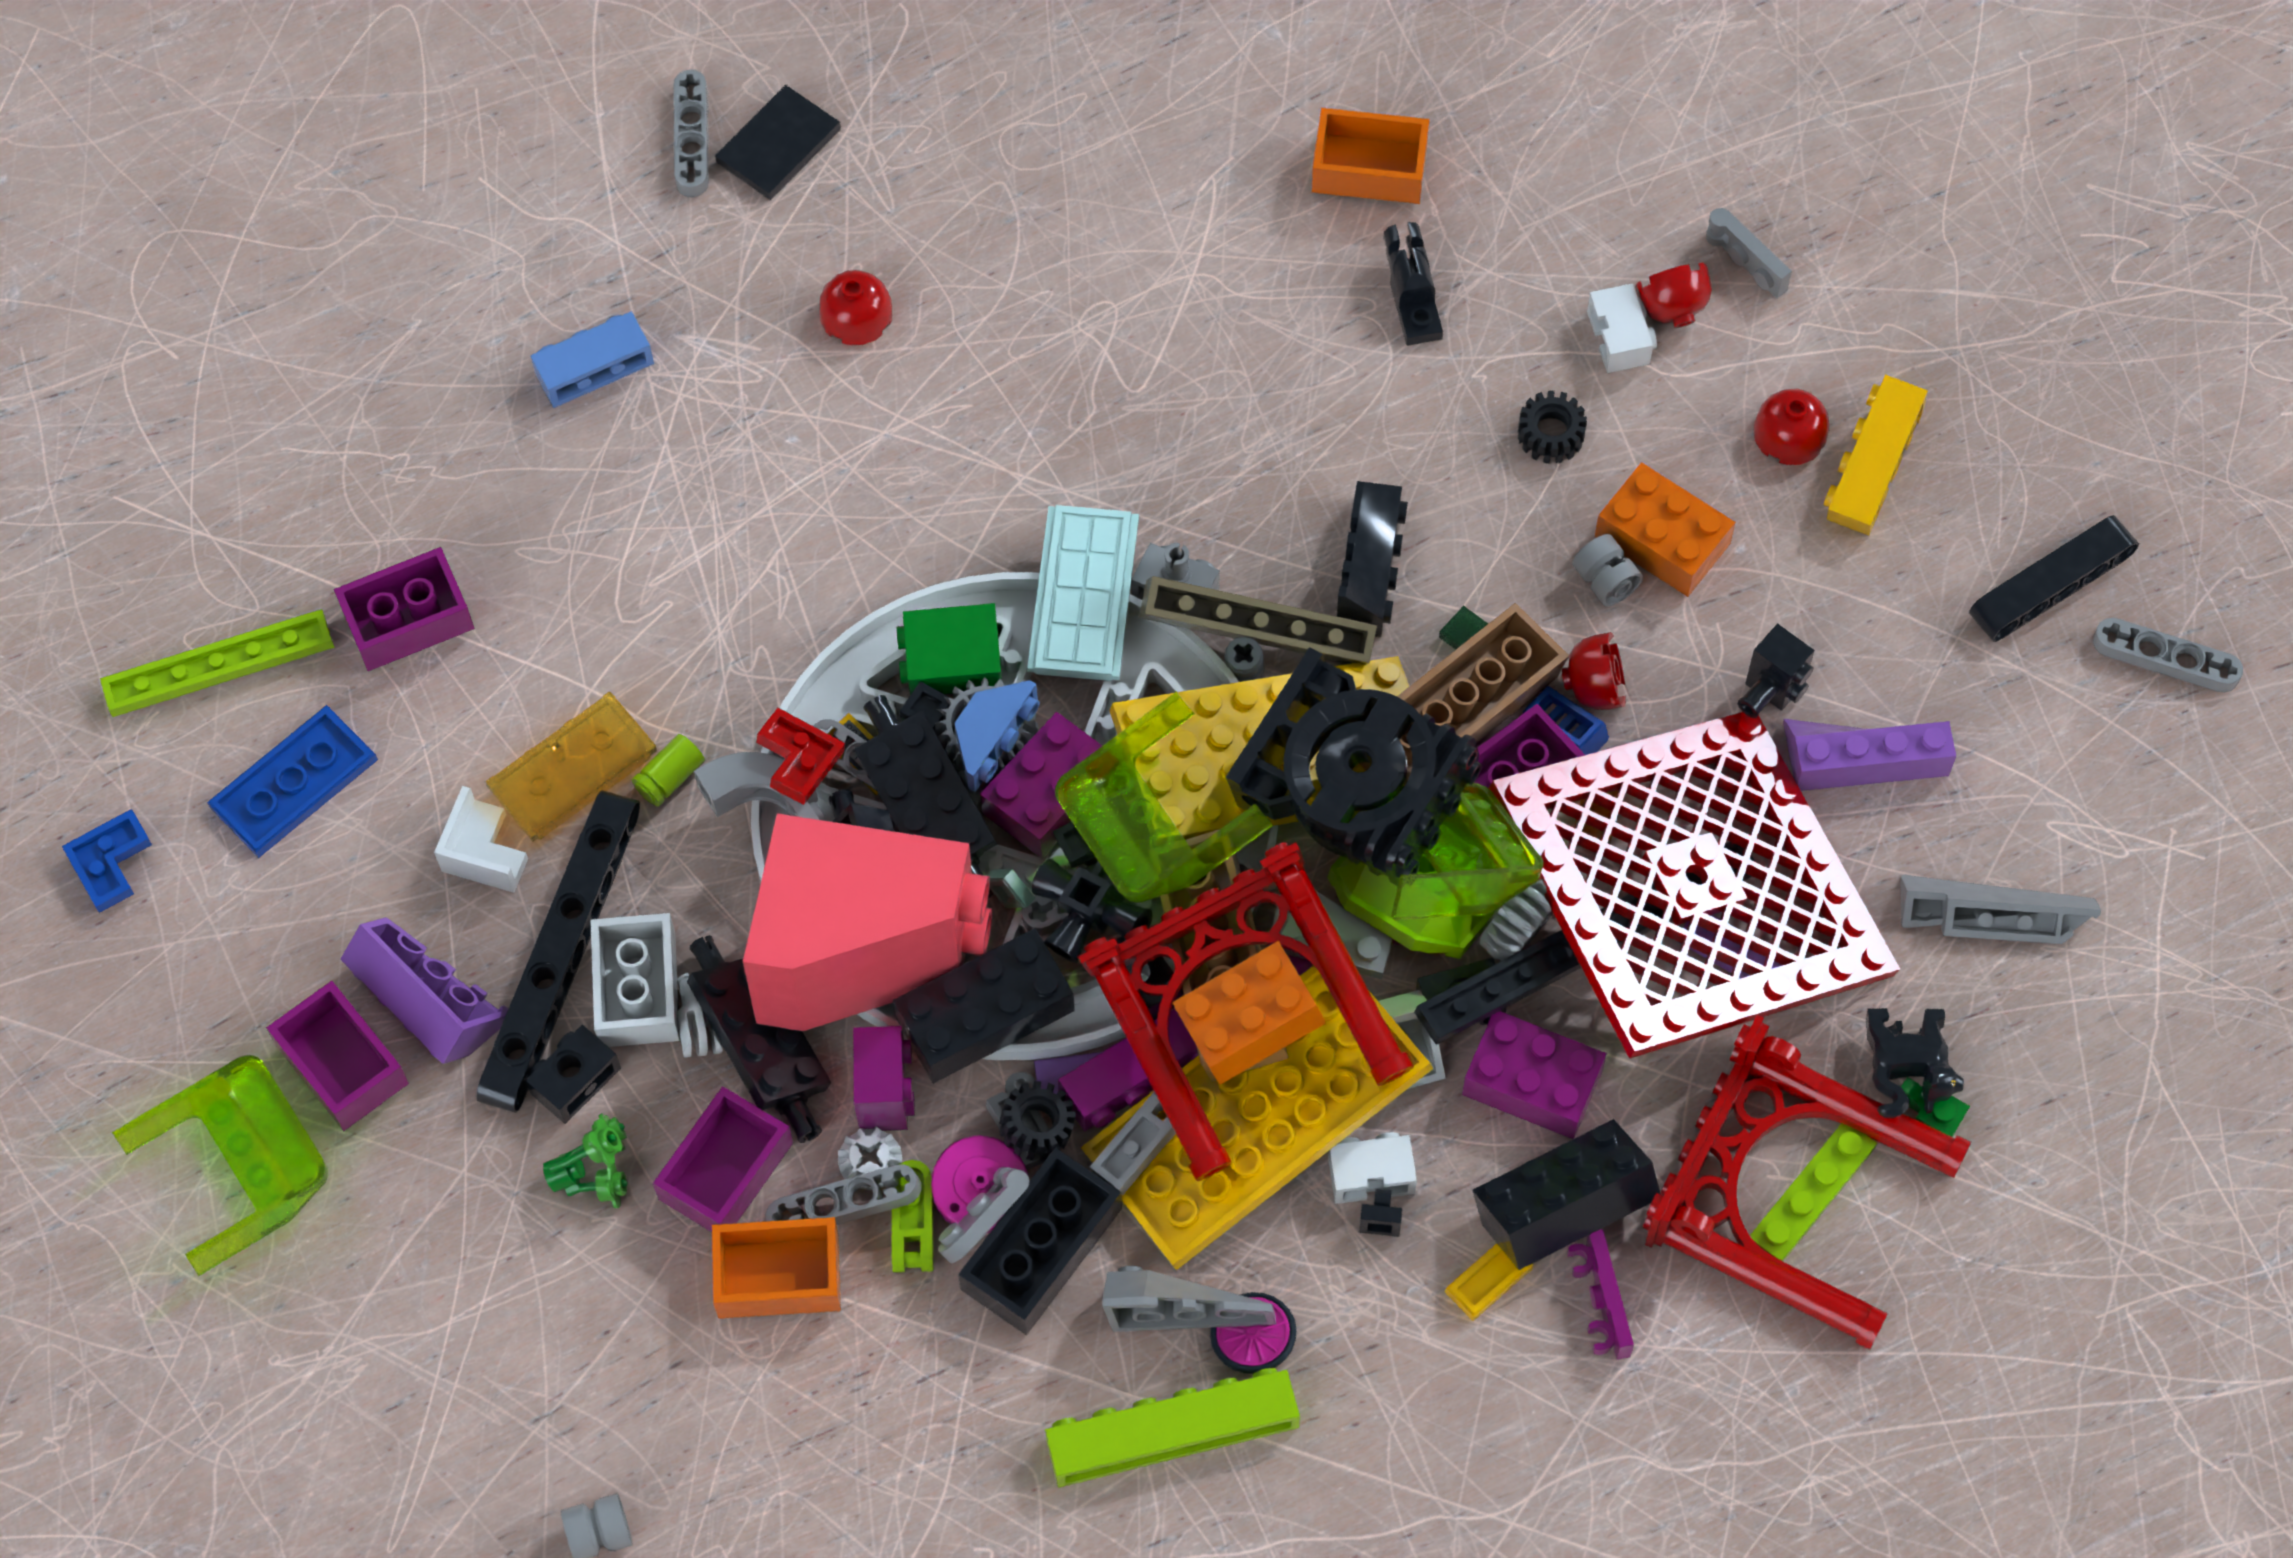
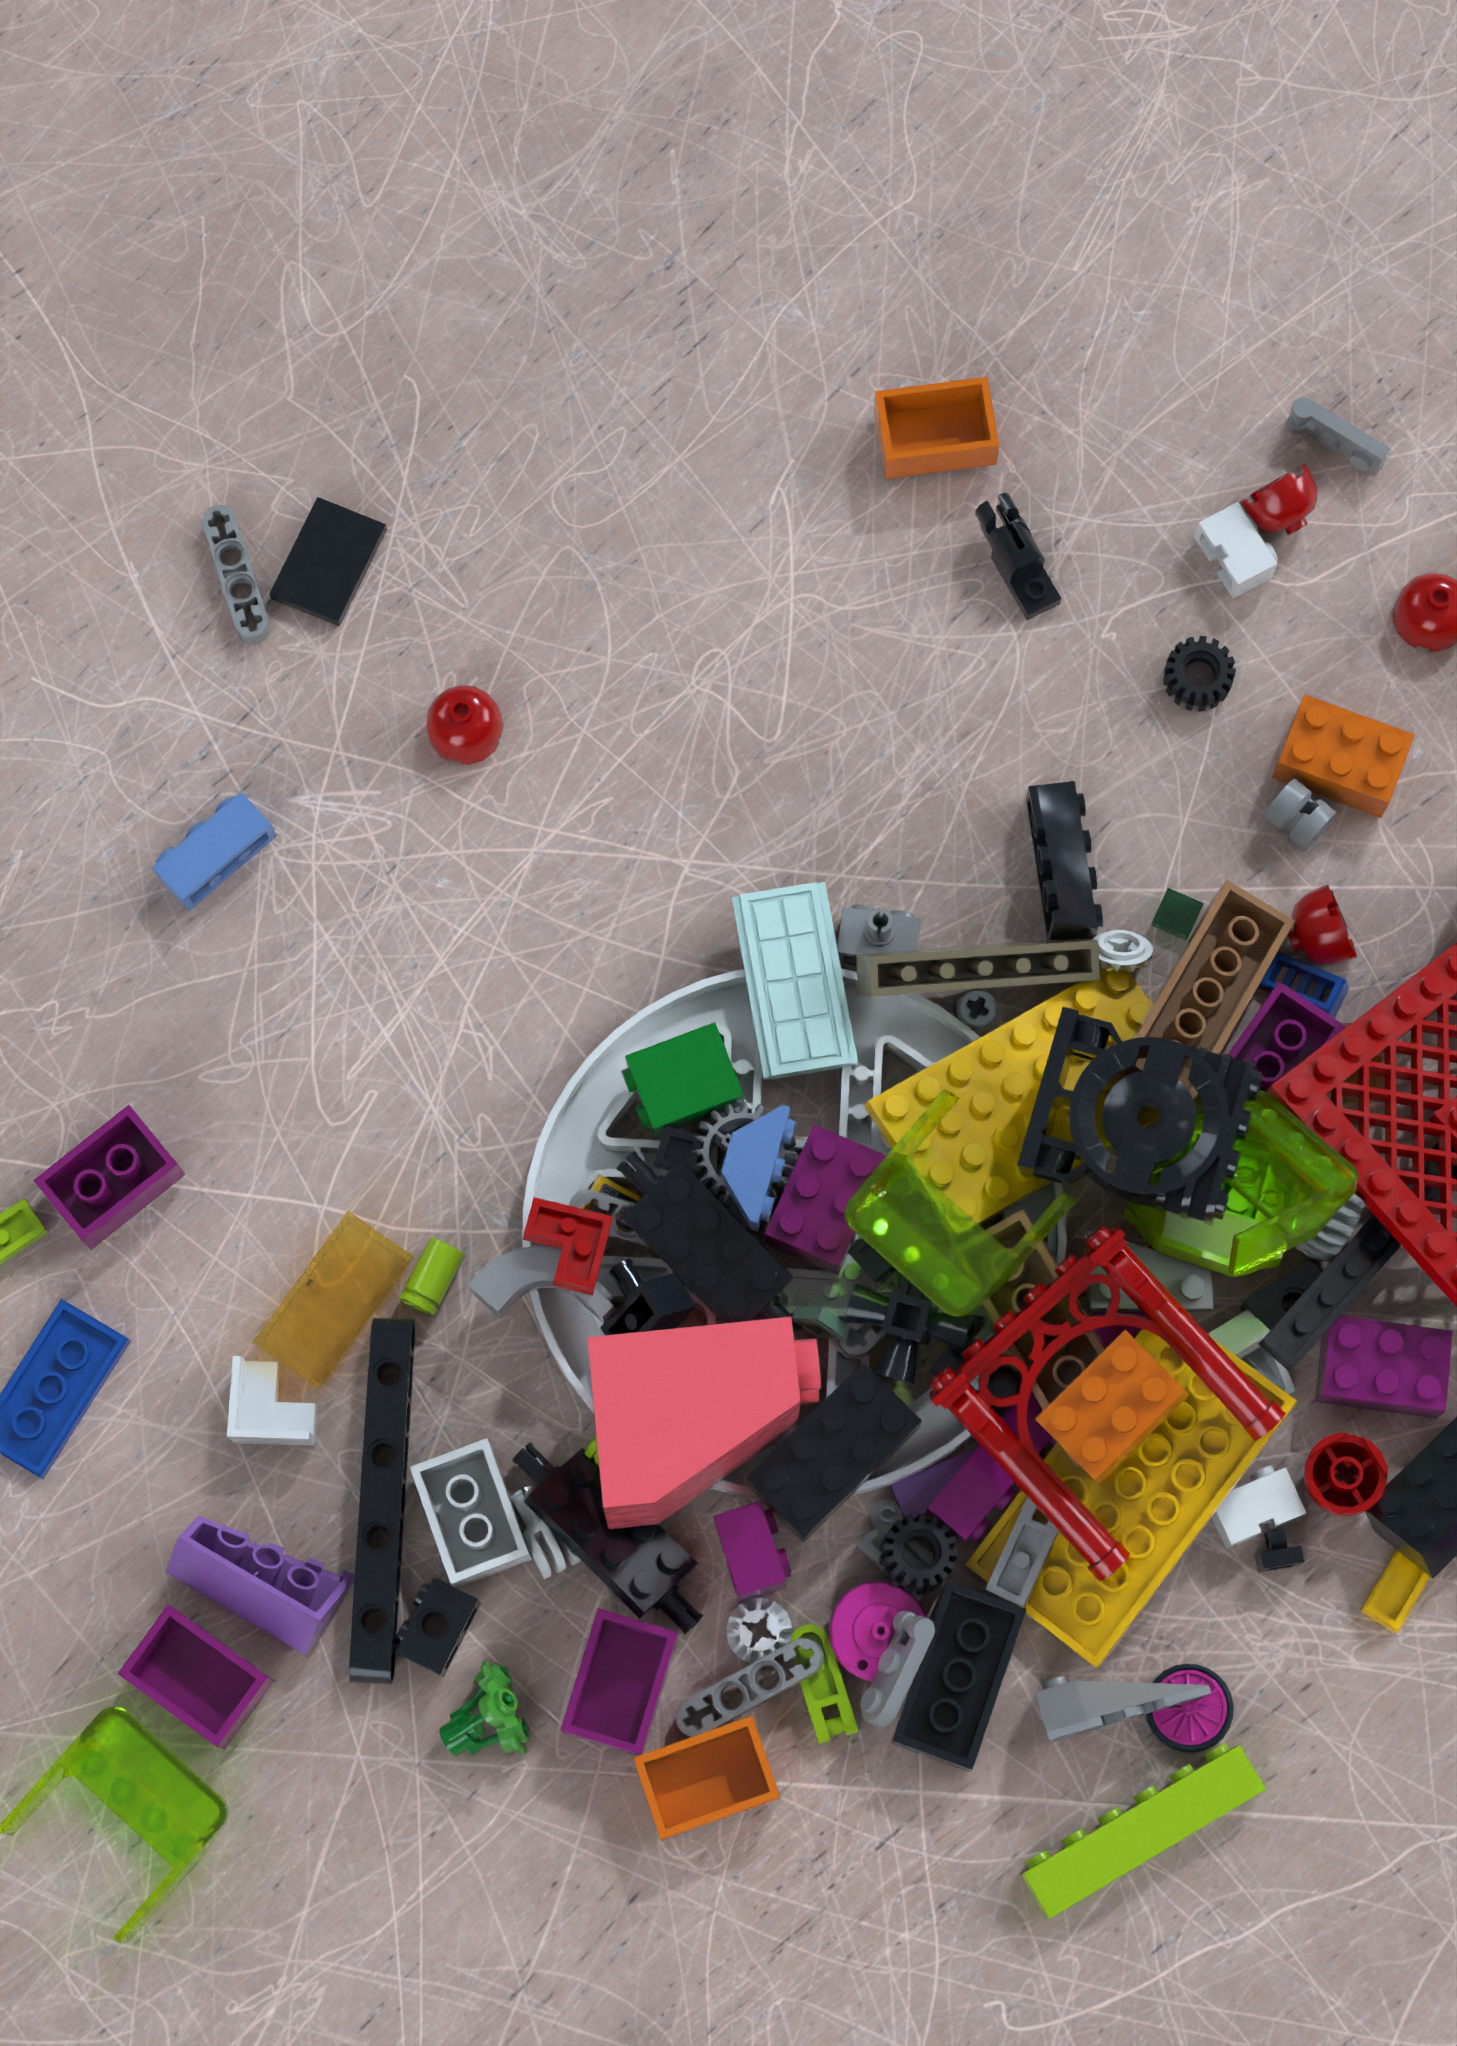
camera: 15 degrees left, 10 degrees up
(1400, 647) = (1123, 950): none -> white gear
(1463, 1155) = (1345, 1474): none -> red cylinder

